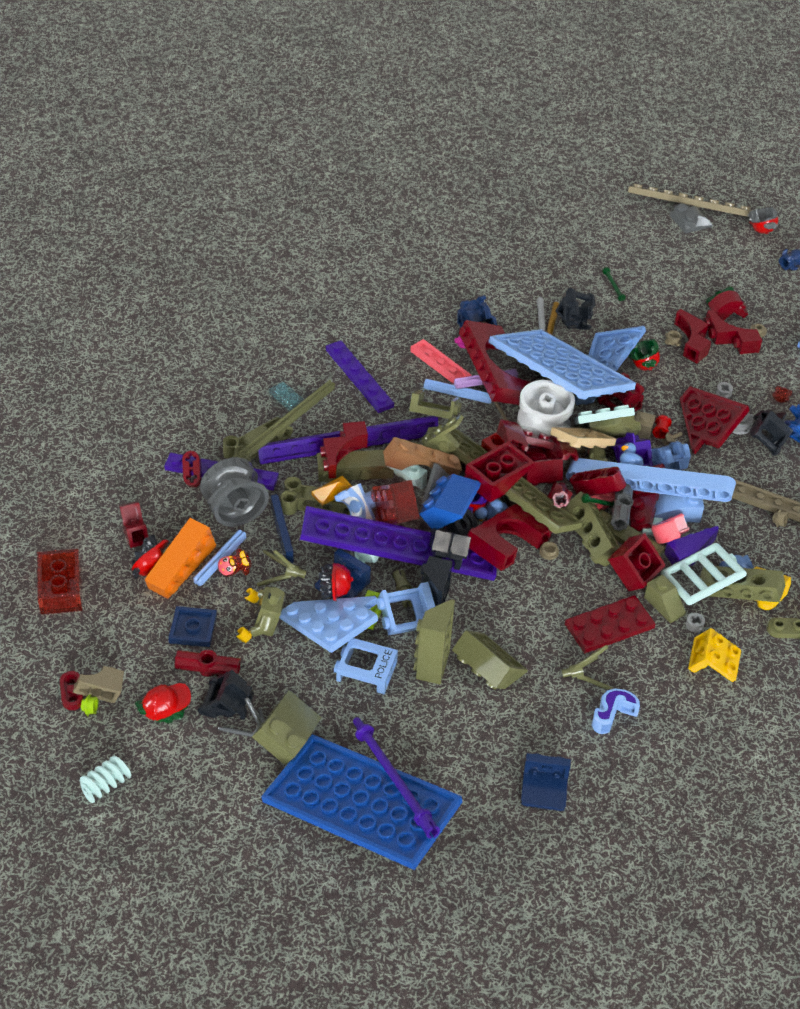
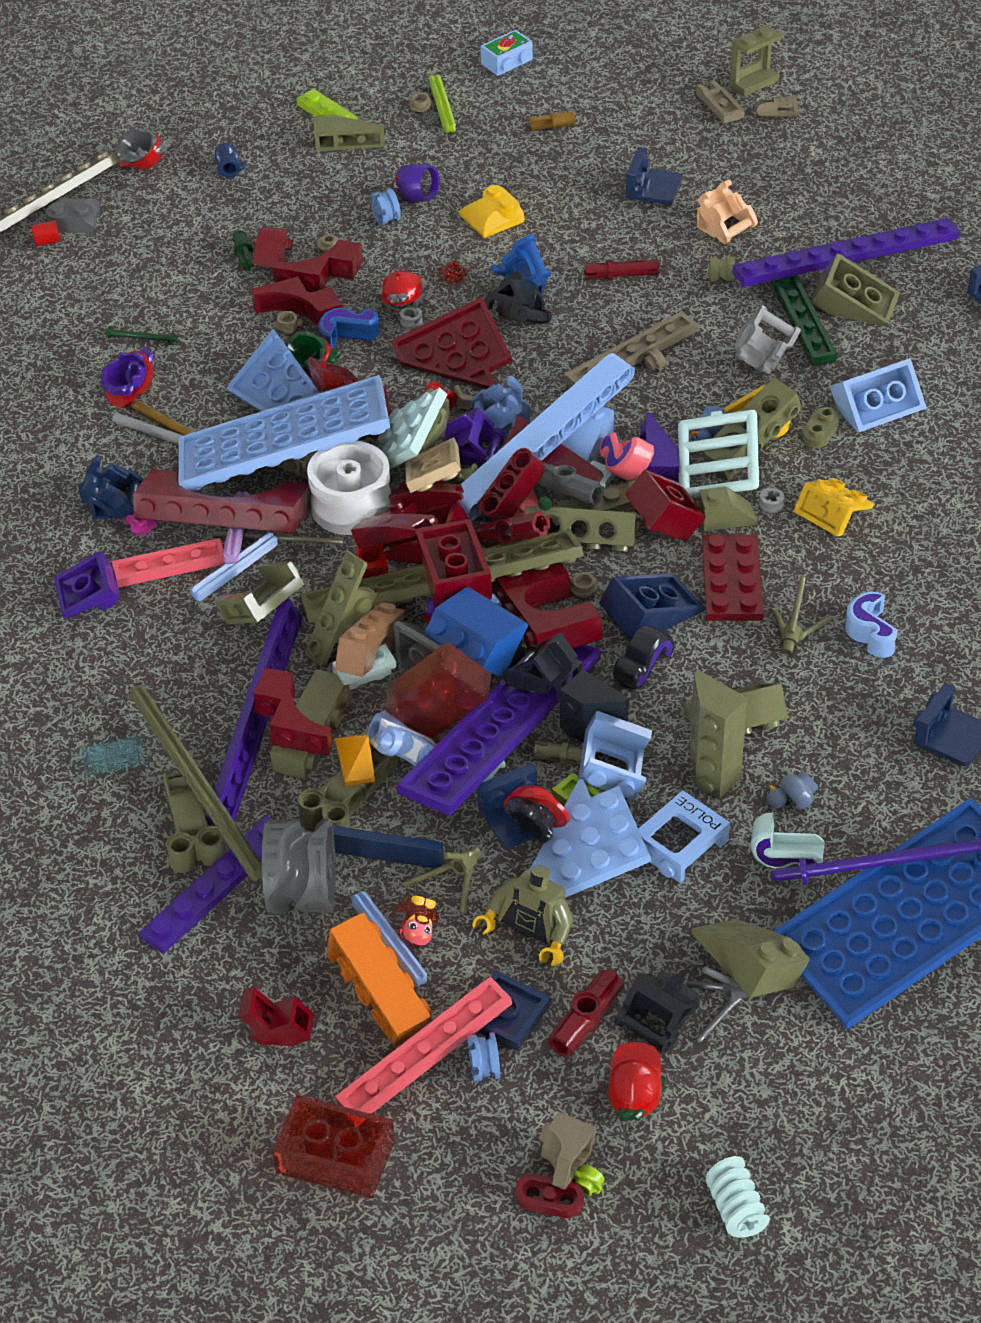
camera: 60 degrees left, 0 degrees up
(143, 597) = (425, 1048): none -> coral plate
(149, 556) = (348, 1019): red hair -> none
(150, 625) = (483, 1057): none -> medium blue wheel
(196, 468) = (199, 912): dark red beam -> none
(360, 376) = (127, 660): dark purple plate -> none
(385, 719) = (783, 849): none -> light aqua animal
(399, 338) = (87, 585): none -> dark purple slope
(438, 712) = (796, 787): none -> sand blue animal
(504, 593) = (642, 655): none -> black animal
(554, 587) = (648, 600): none -> dark blue slope
(564, 282) = (127, 377): none -> dark purple hair
(572, 314) = (180, 385): black piece -> none
(626, 363) = (328, 376): none -> clear red slope
(629, 455) = (492, 441): medium blue animal -> none
(663, 213) = (45, 233): none -> red beam
(690, 360) = (347, 324): none -> blue animal
(738, 374) = (402, 288): none -> red hair

